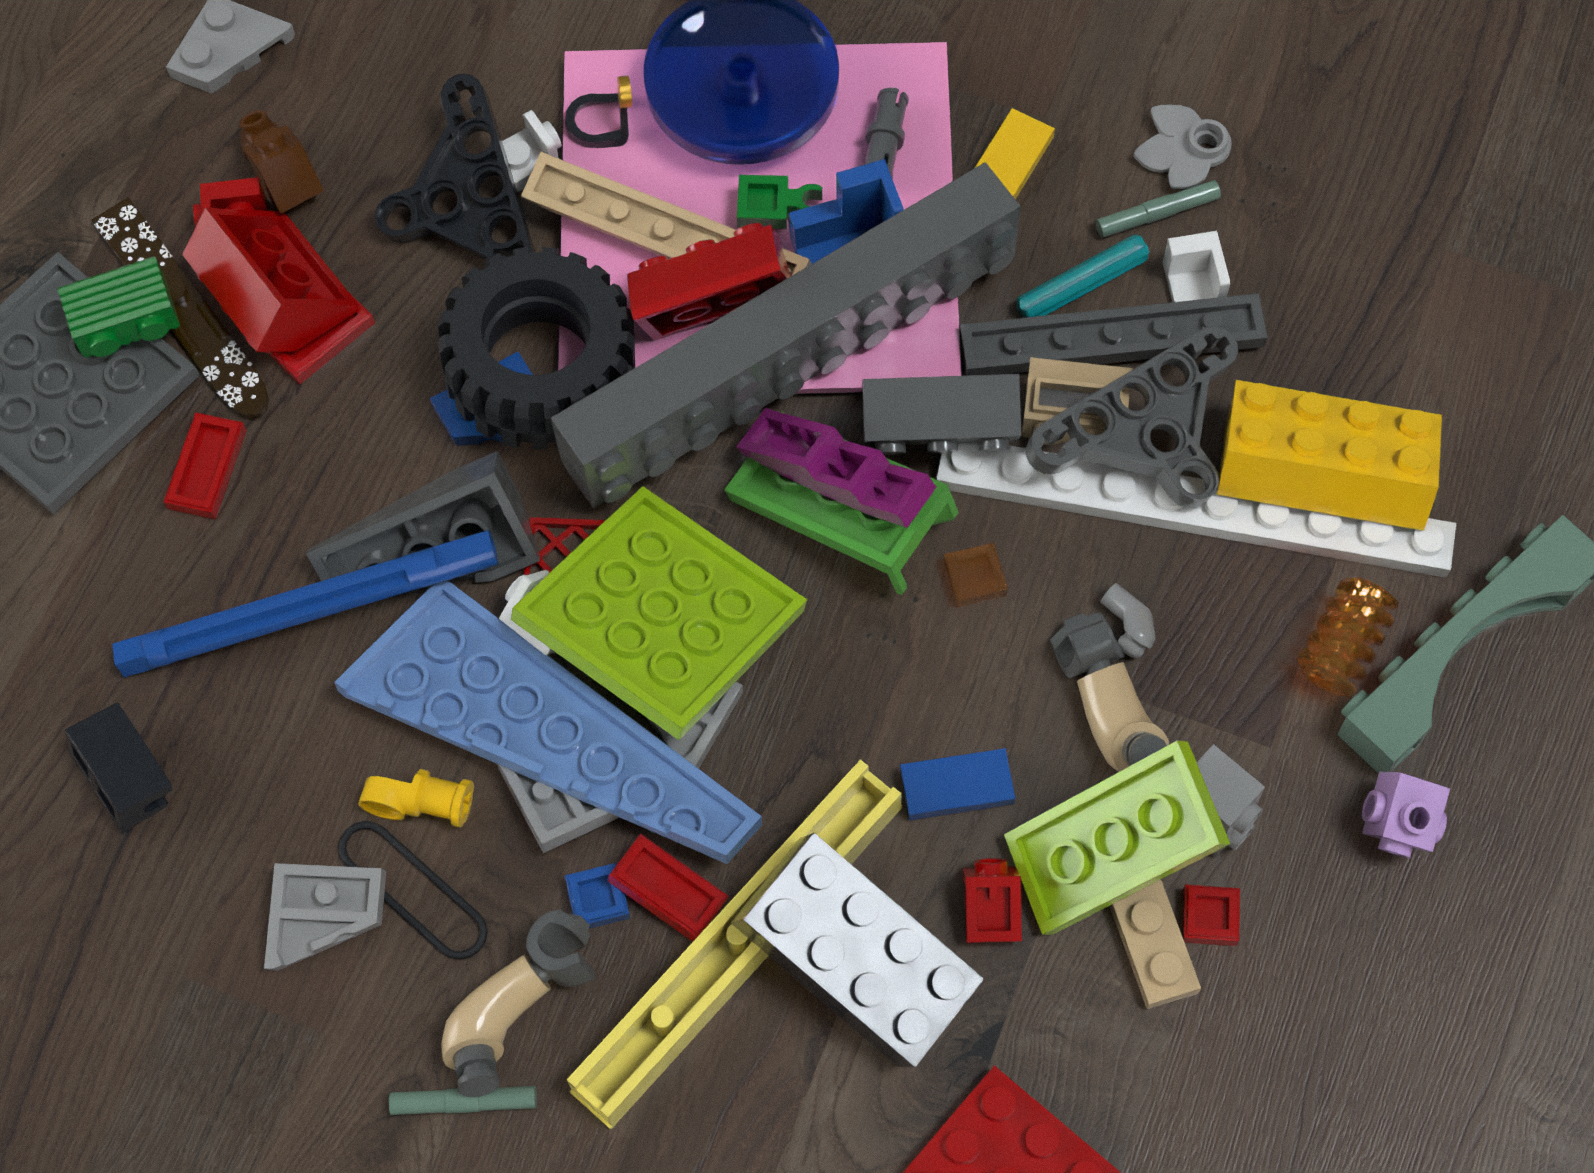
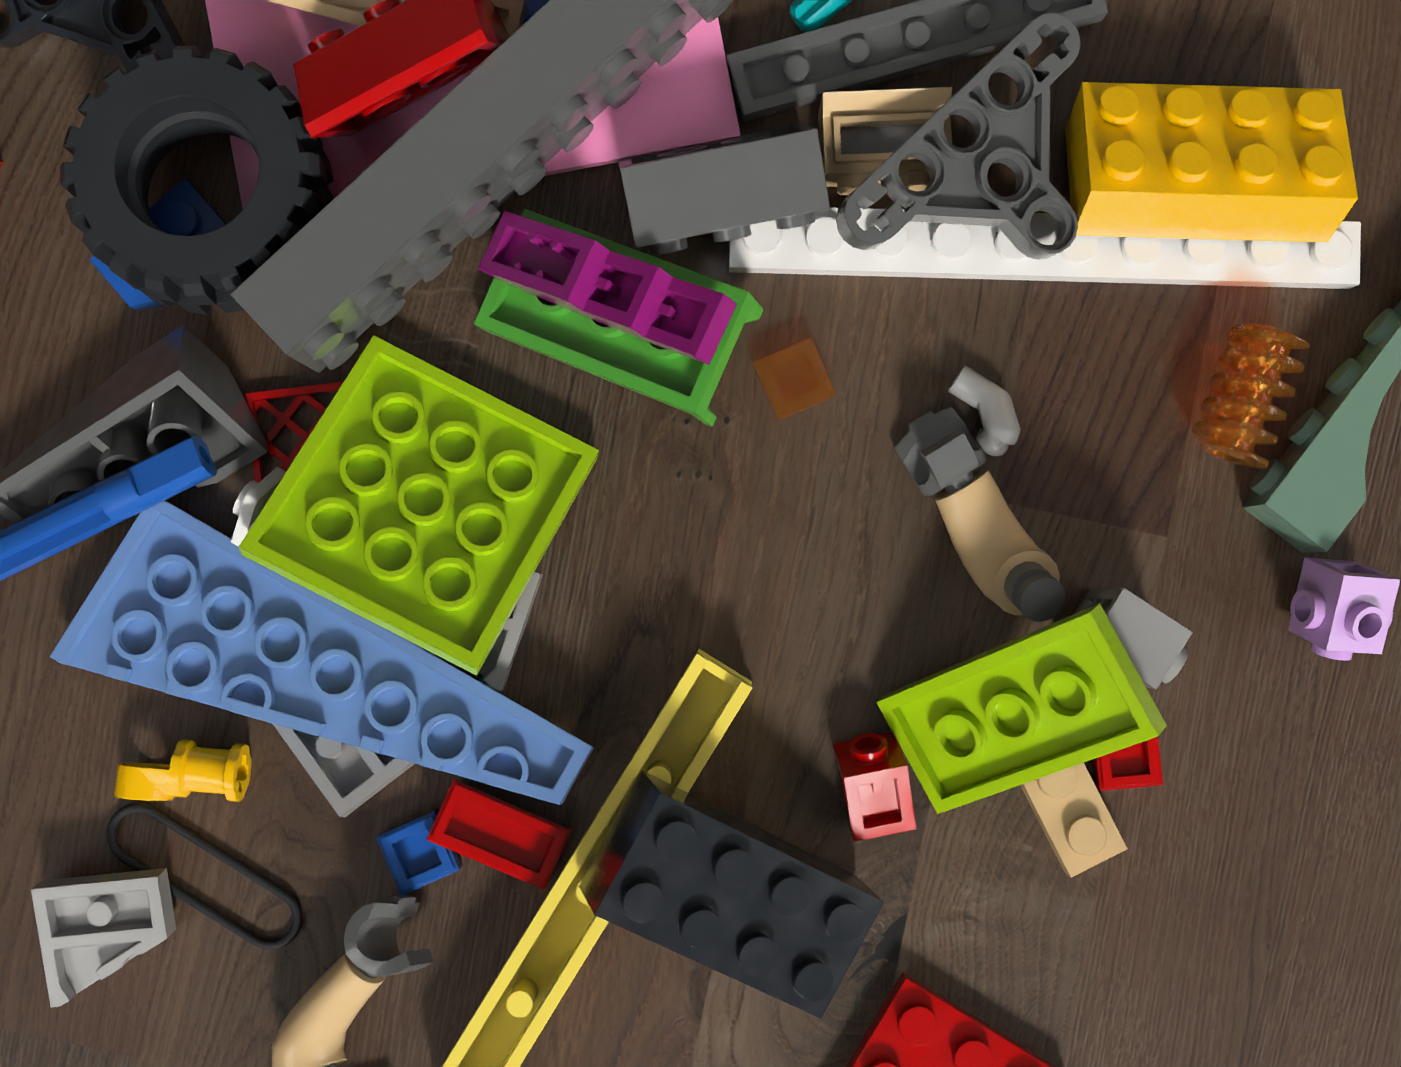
camera: 10 degrees left, 20 degrees up
(957, 784) = (812, 647): blue tile -> none

